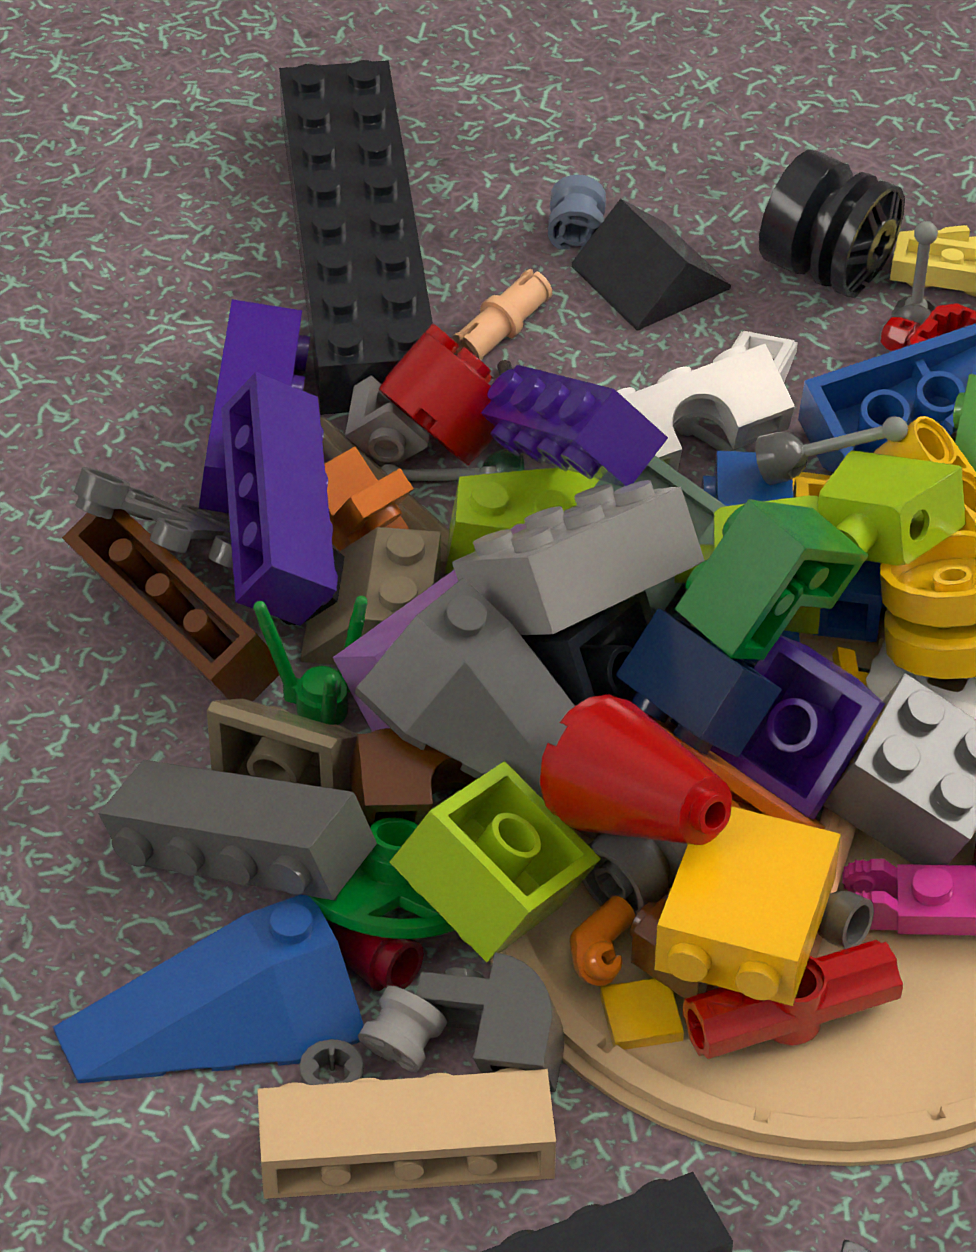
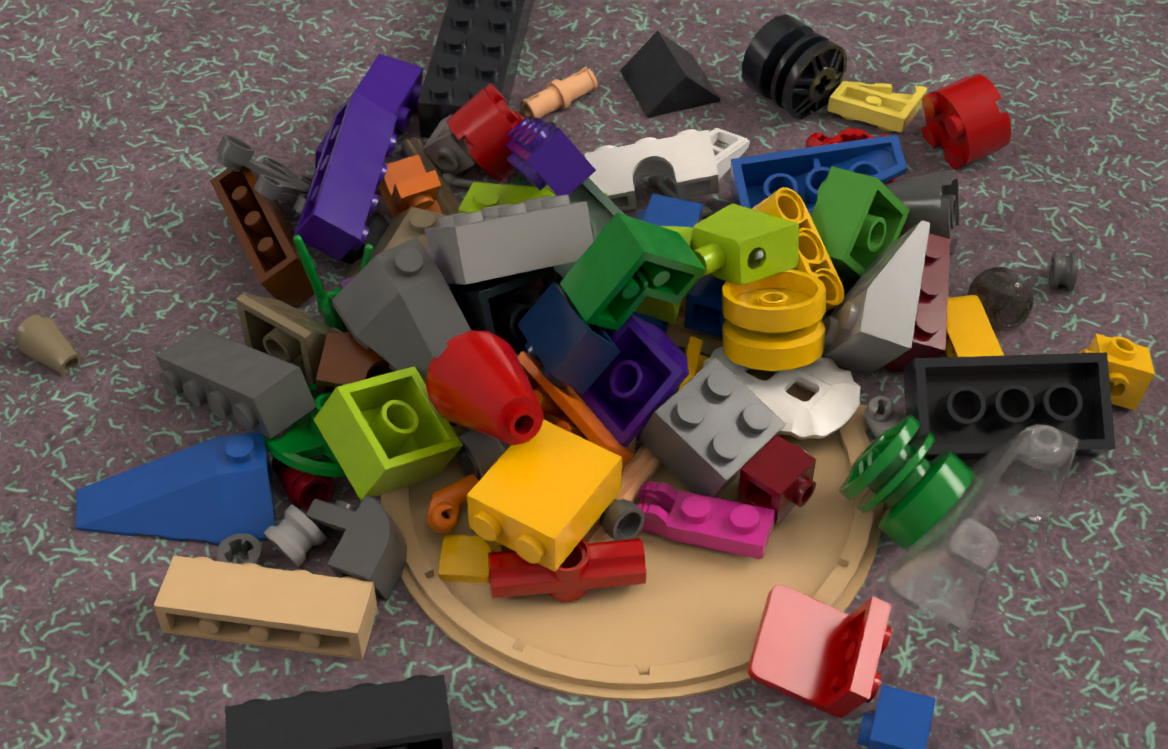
camera: 15 degrees right, 0 degrees up
(576, 210) = (631, 36): sand blue wheel -> none
(784, 456) = (689, 202): hinge -> none
(915, 306) = (835, 127): light grey hinge -> none

